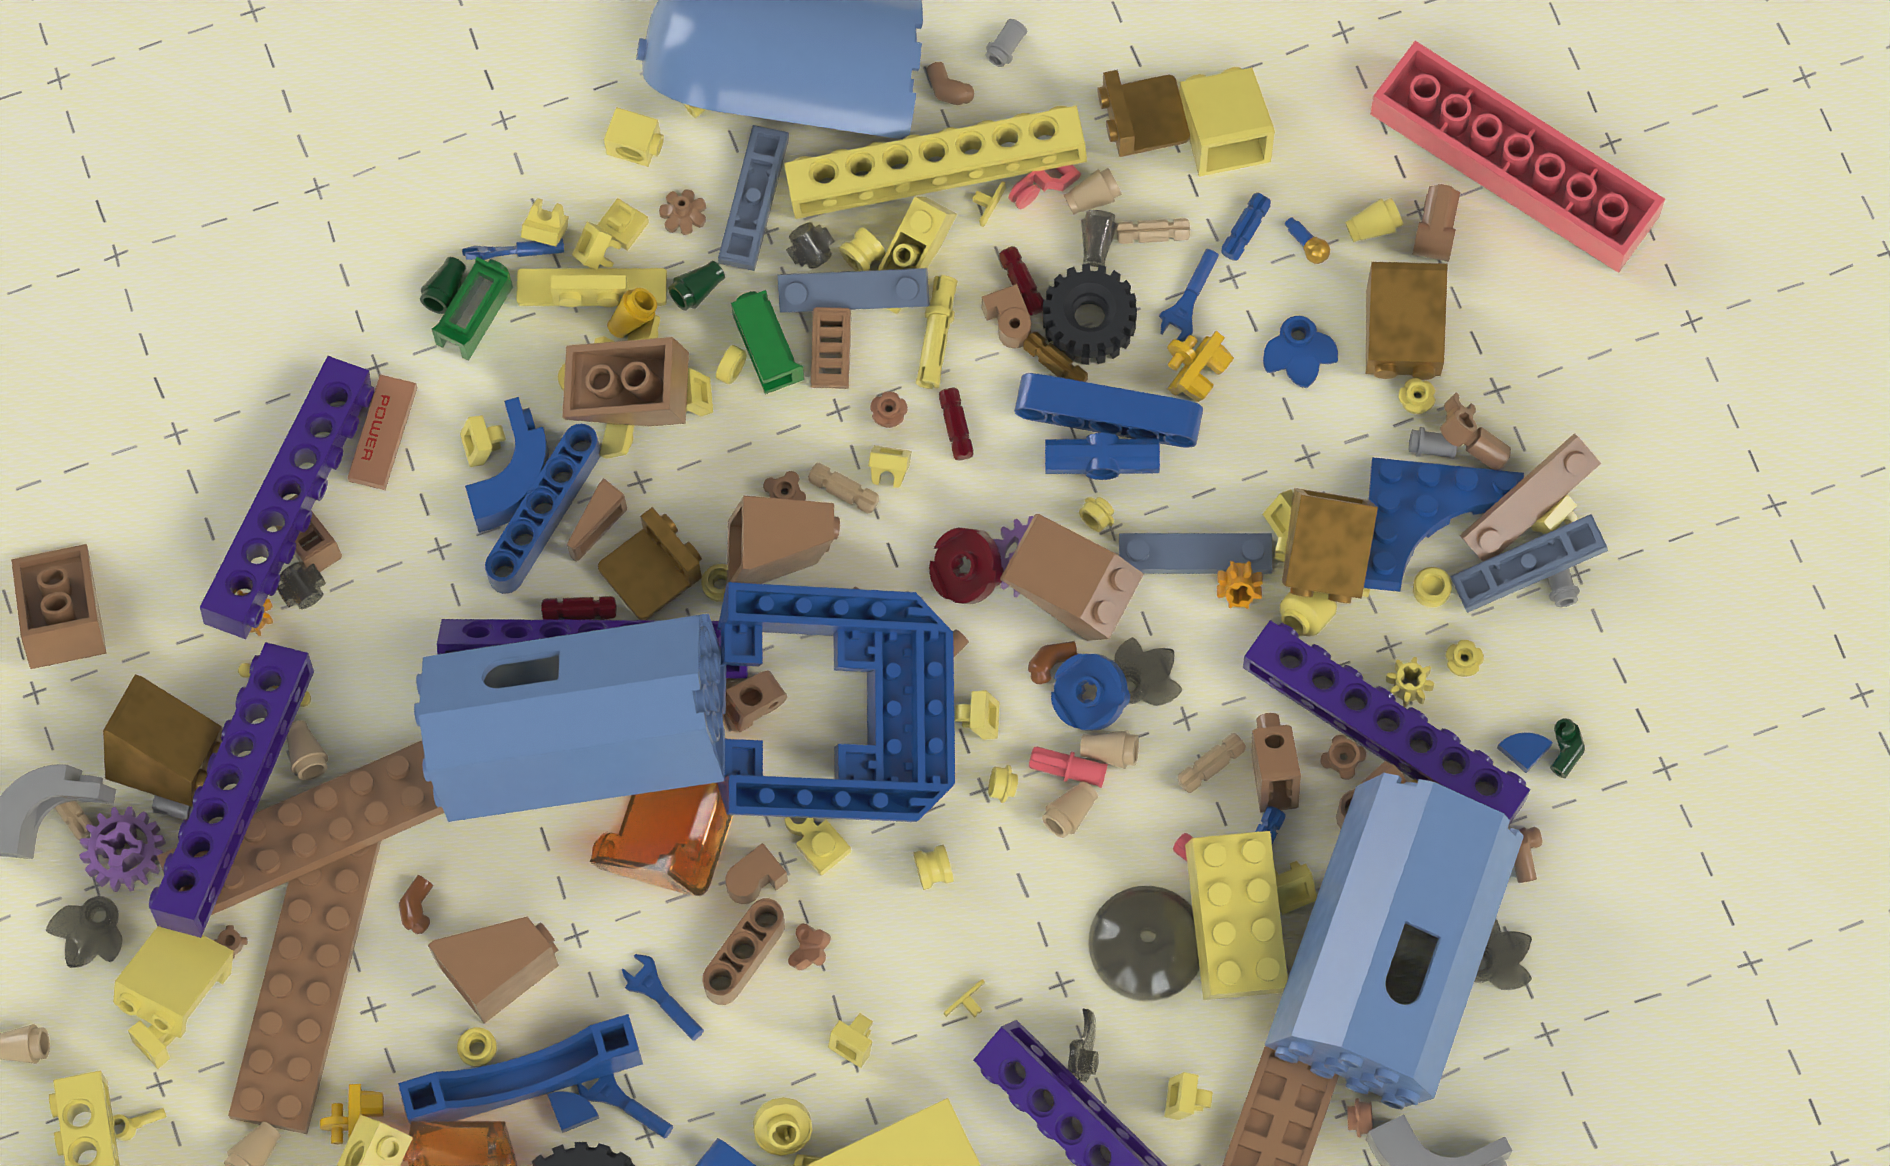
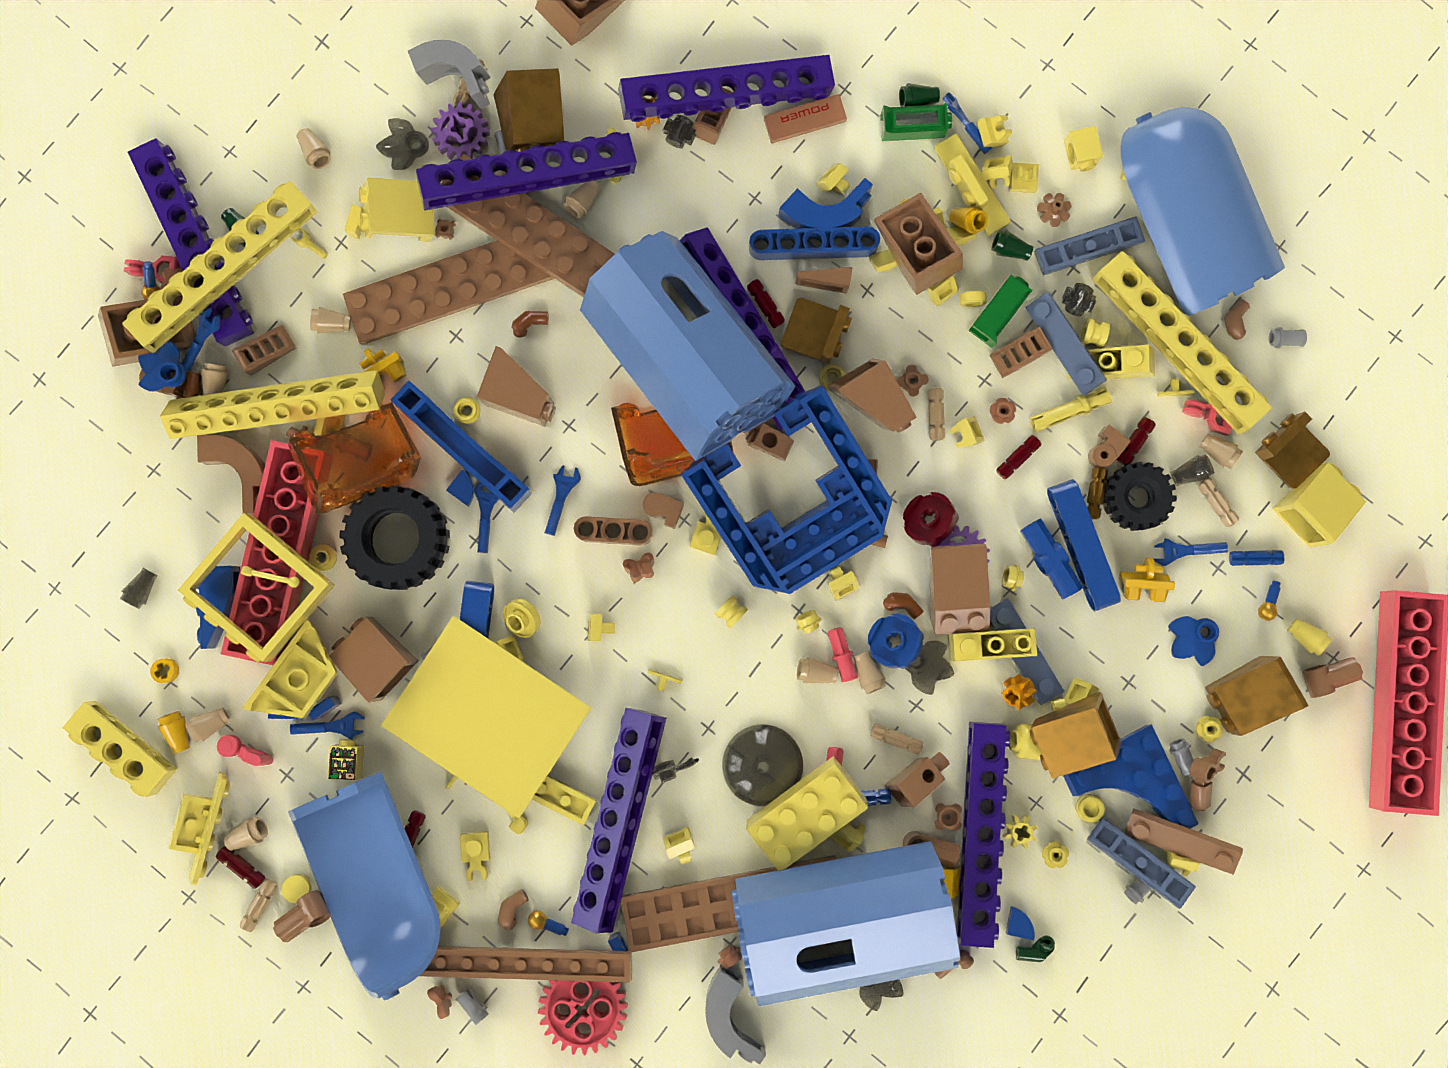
camera: 55 degrees right, 15 degrees up
(1162, 583) = (992, 644): none -> light yellow slope

